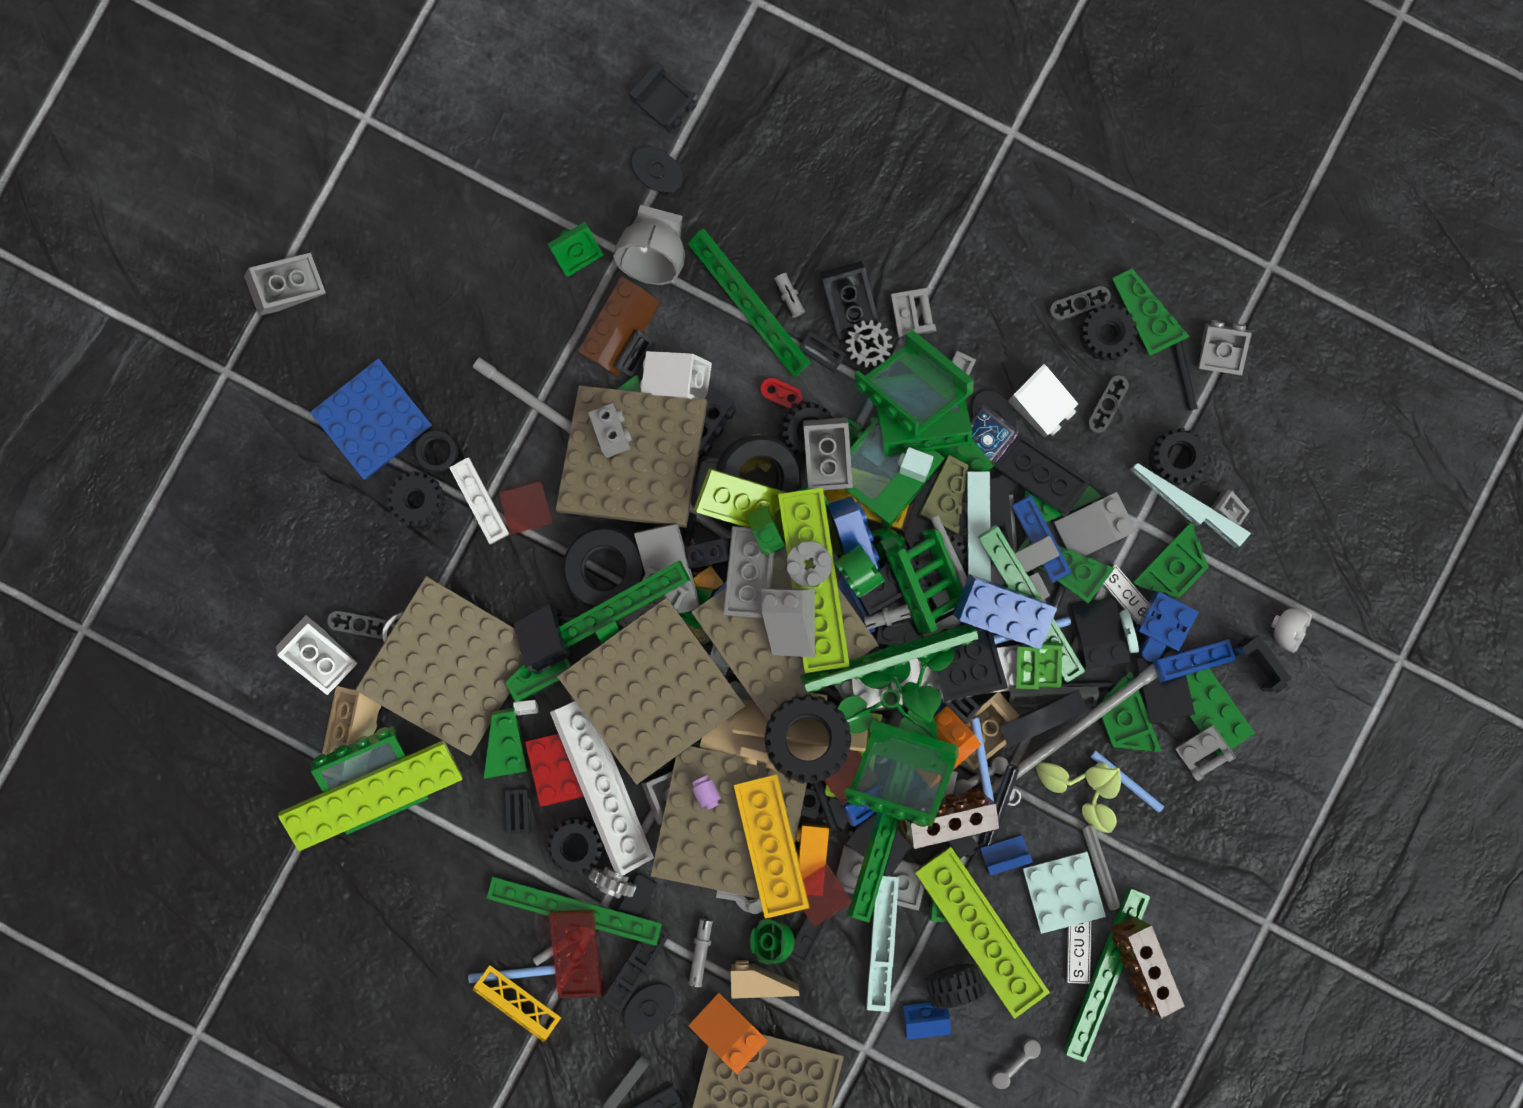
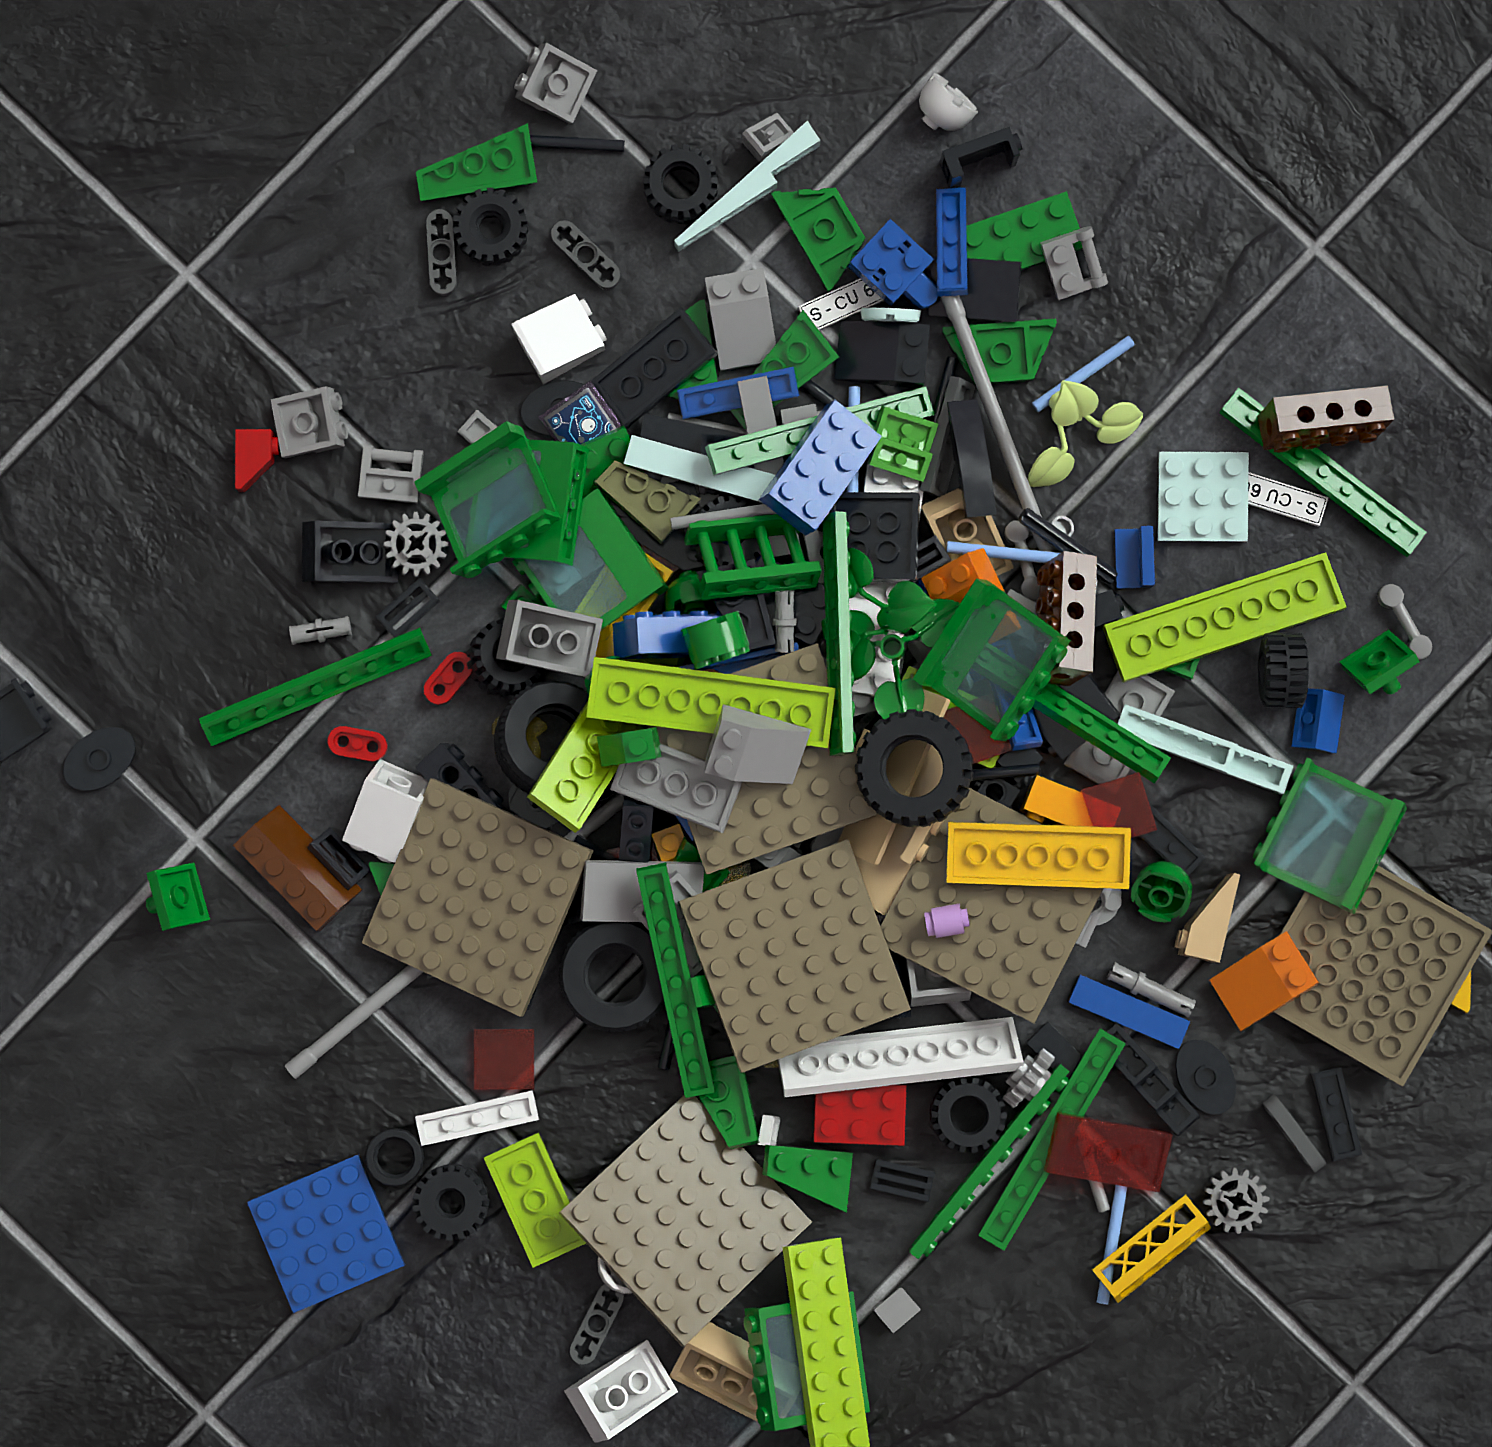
camera: 80 degrees left, 0 degrees up
(283, 283) = (109, 1301): light grey slope -> none
(423, 833) = (896, 1309): none -> light grey panel
(434, 555) = (533, 1198): none -> lime plate
(539, 867) = (982, 1171): none -> green plate
(541, 639) = (686, 1083): black panel -> none
(558, 1055) = (1231, 1213): none -> light grey gear
(609, 430) = (436, 915): light grey brick -> none
(652, 247) = (206, 793): light grey plate -> none
(680, 940) = (1129, 1011): none -> blue tile
(717, 344) = (357, 744): none -> red plate
(803, 552) = (671, 702): light grey plate -> none
(845, 1051) = (1329, 836): none -> clear light blue panel
(898, 214) = (253, 455): none -> red slope
(915, 464) = (596, 528): light aqua brick -> none
(933, 245) = (309, 422): none -> light grey plate
(980, 1054) = (1380, 663): none -> green tile
(1101, 867) = (1184, 439): light grey axle -> none

